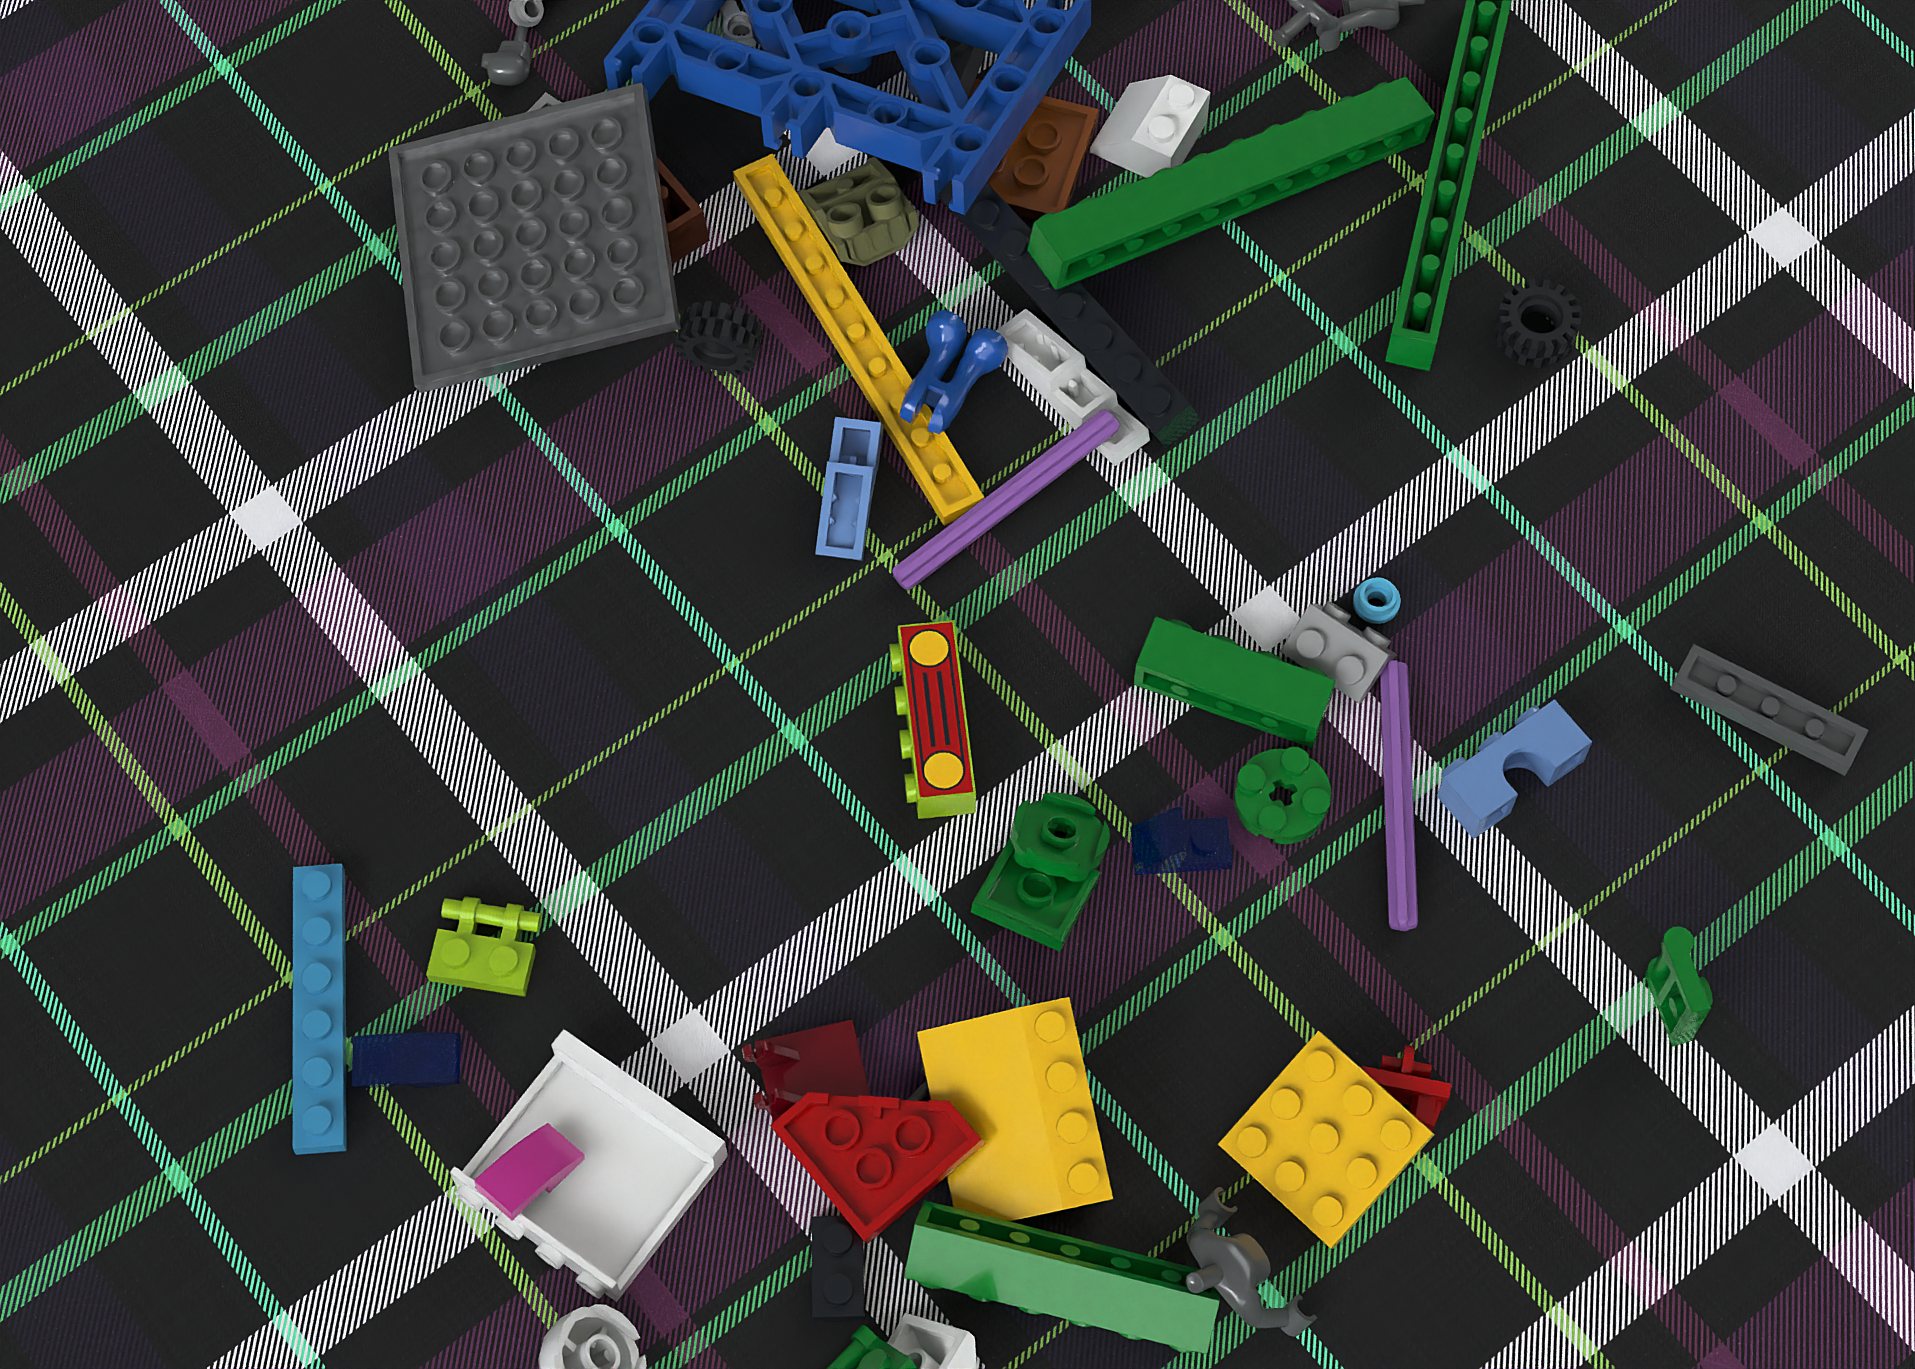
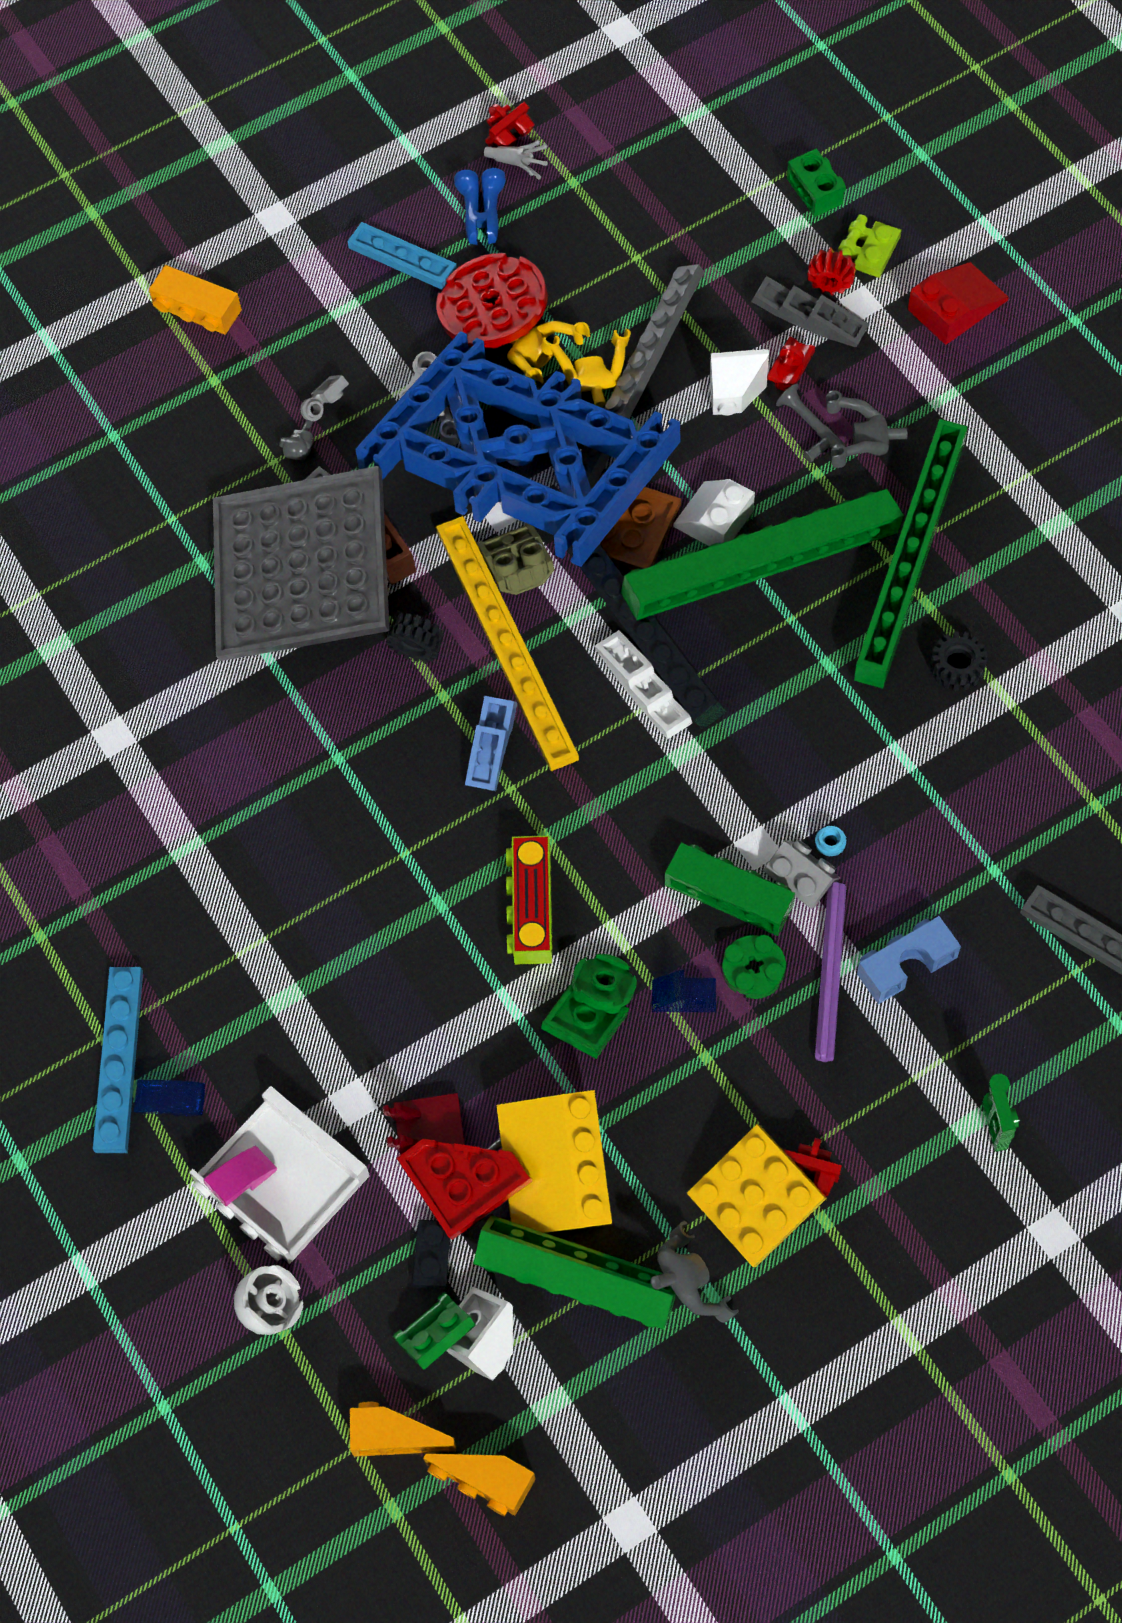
camera: 10 degrees right, 0 degrees up
(480, 960) = (225, 1037): lime plate -> none
(946, 338) = (564, 647): blue piece -> none
(1005, 499) = (592, 757): medium lavender axle -> none

